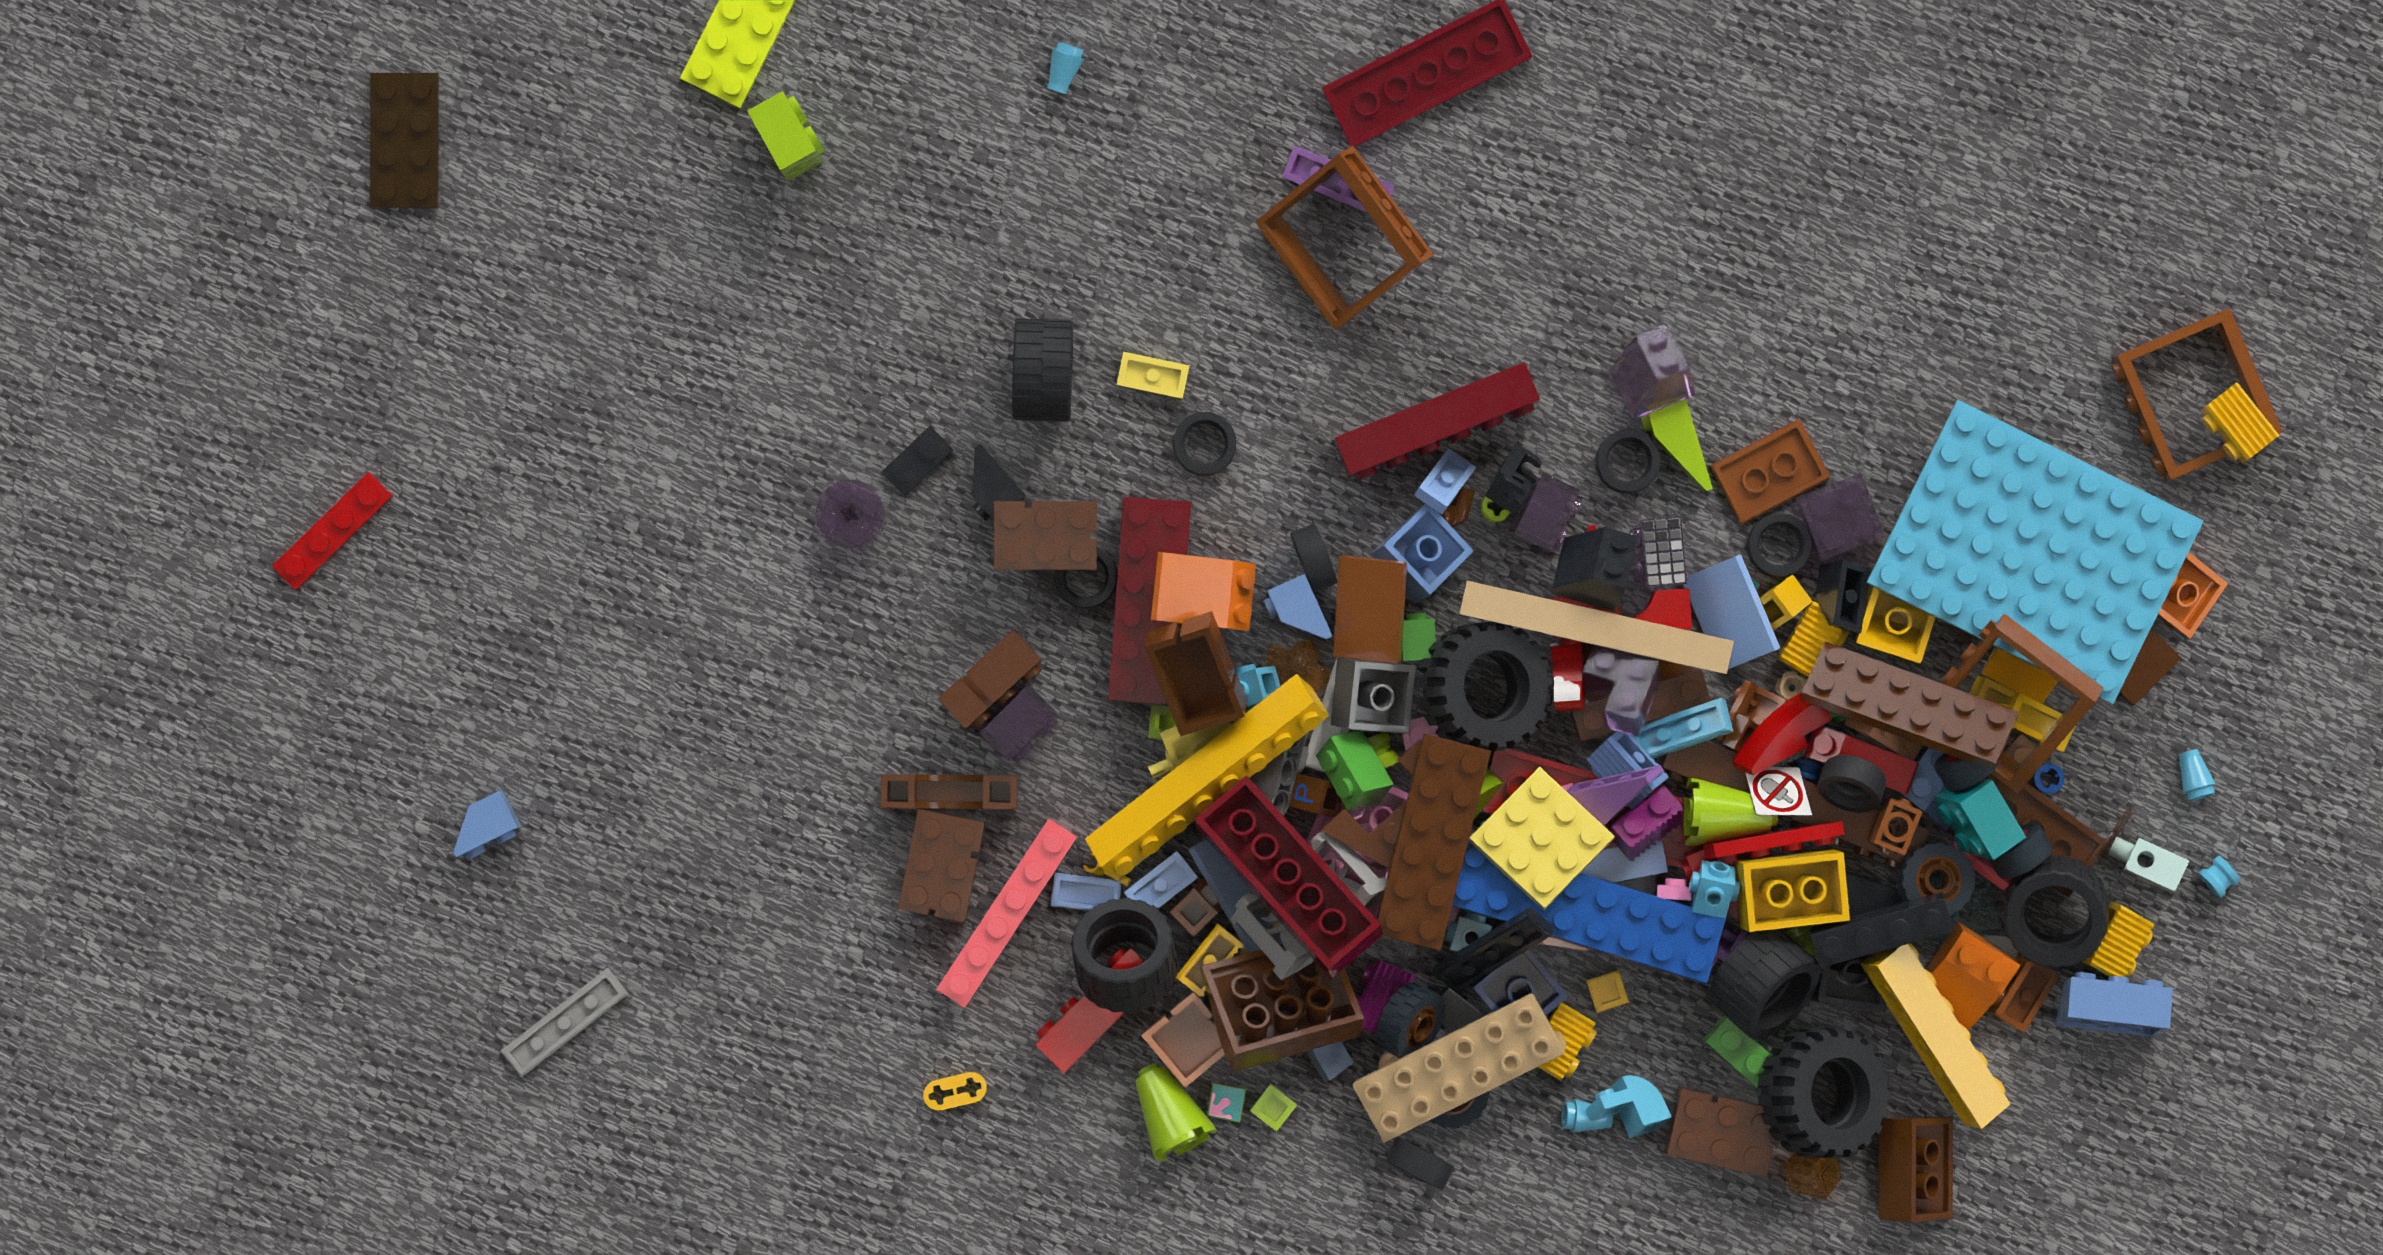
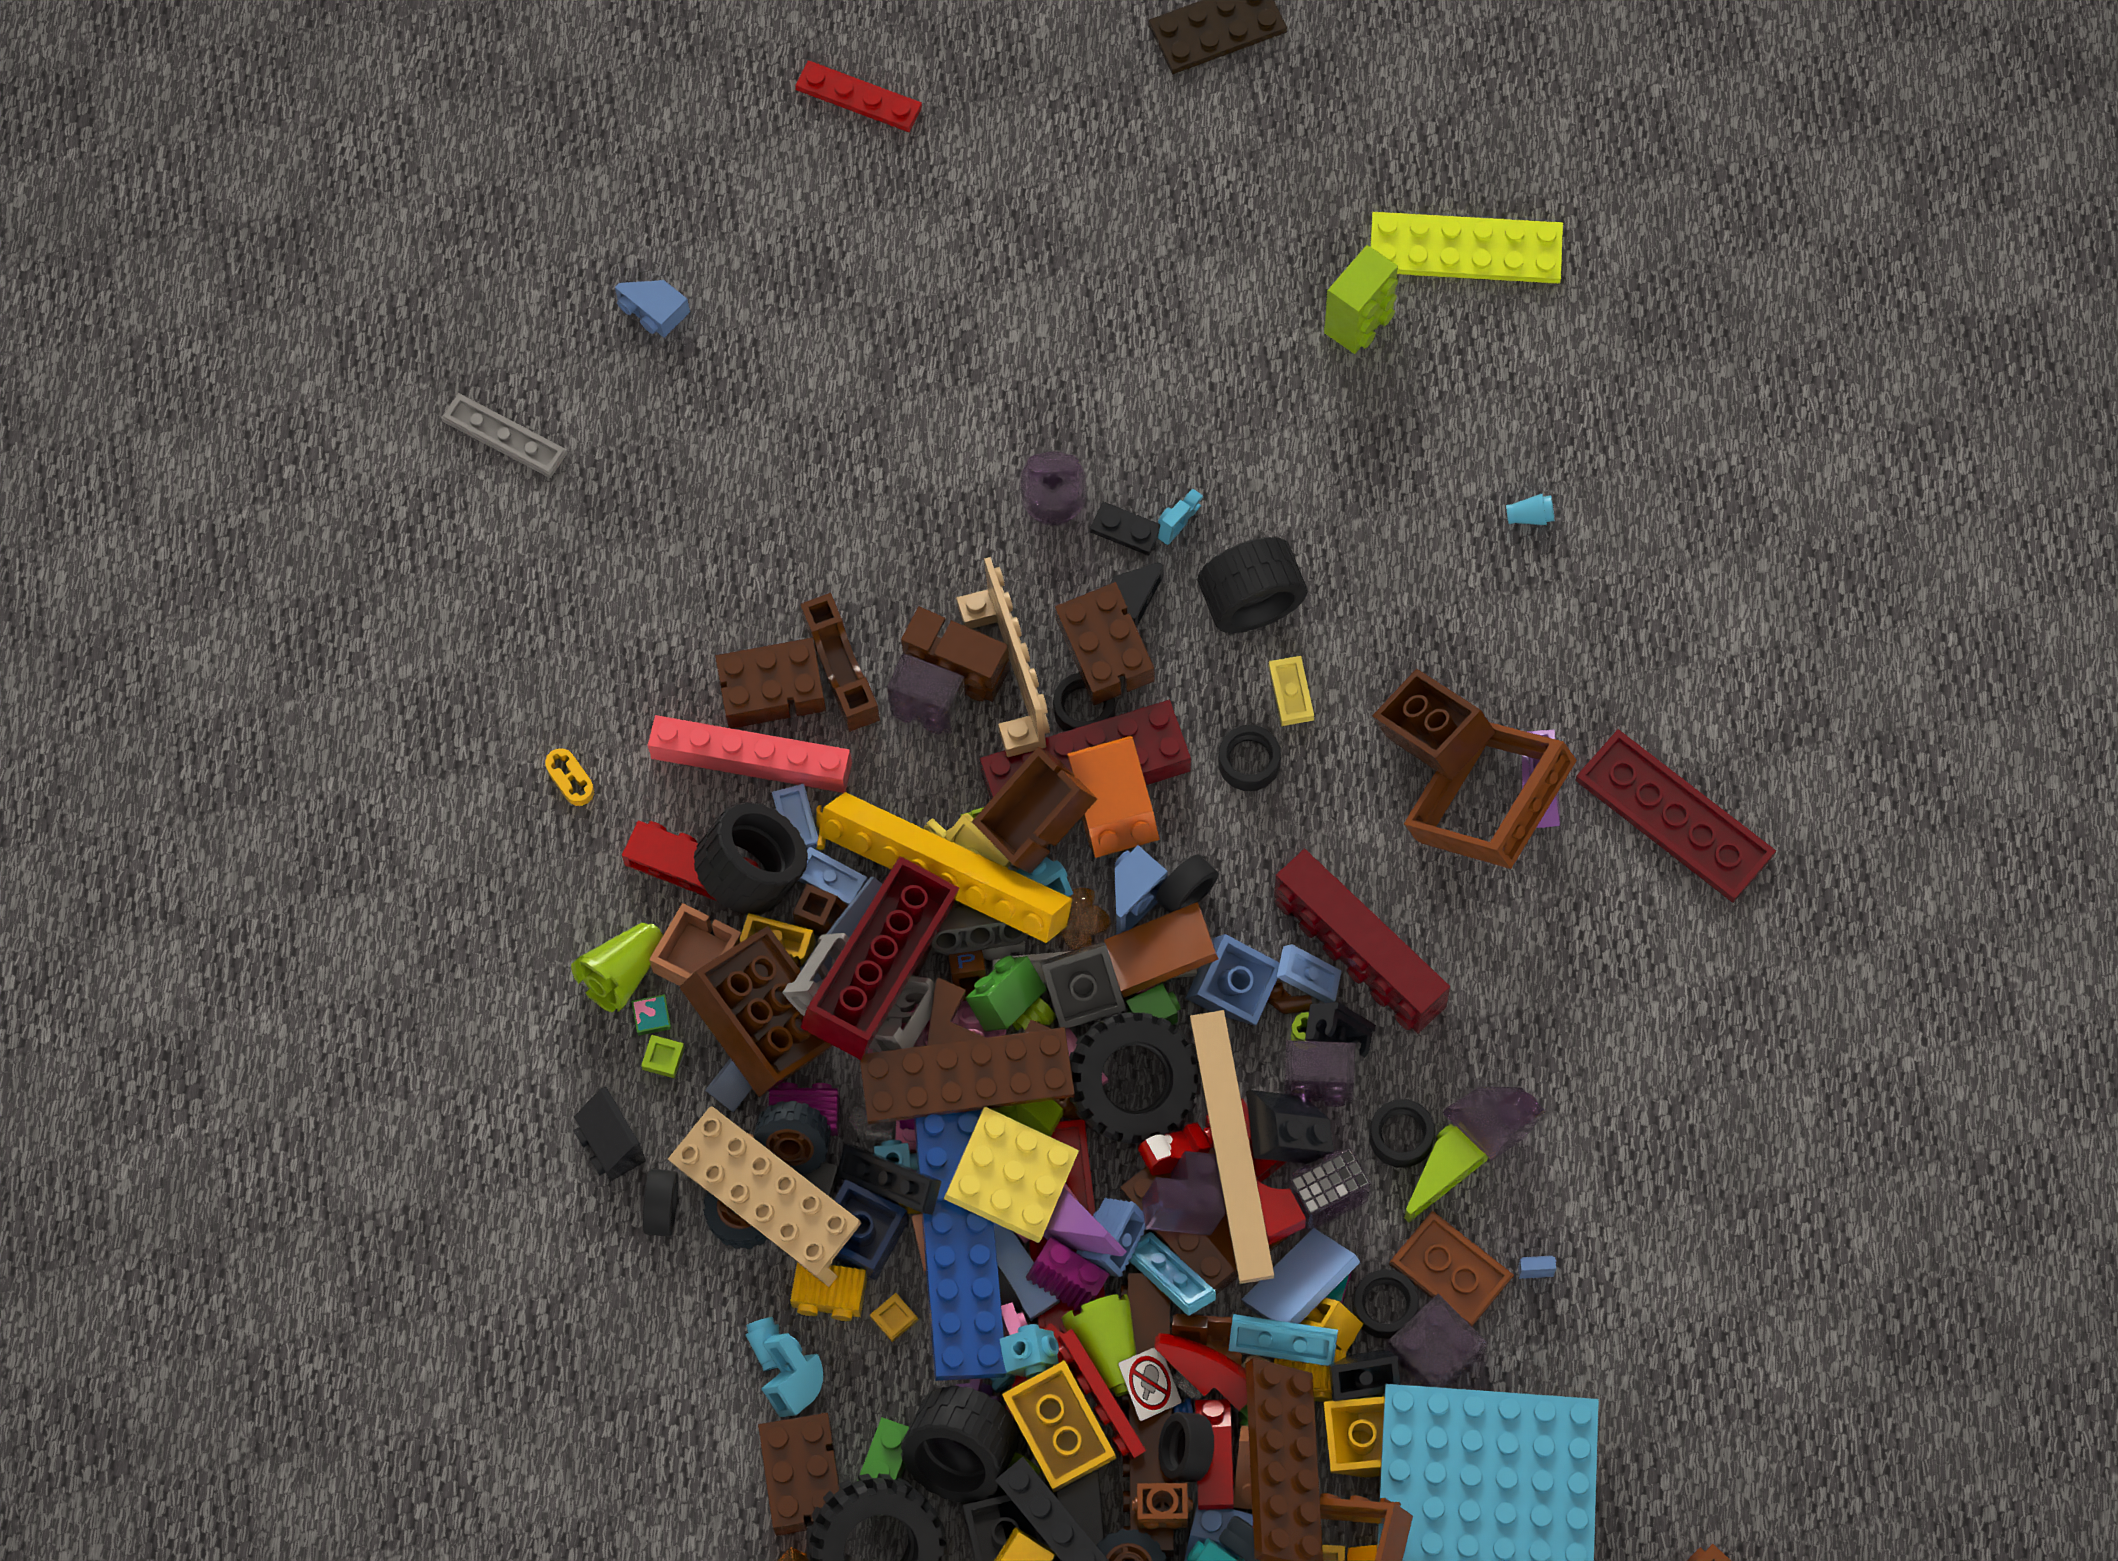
camera: 70 degrees right, 20 degrees down
(931, 411) = (1175, 519): none -> medium azure plate
(946, 631) = (996, 606): none -> tan bracket
(1254, 260) = (1434, 724): none -> reddish brown brick
(1335, 1187) = (608, 1135): none -> black slope
(1786, 655) = (1283, 1340): none -> medium azure tile
(1802, 395) = (1537, 1267): none -> medium blue tile

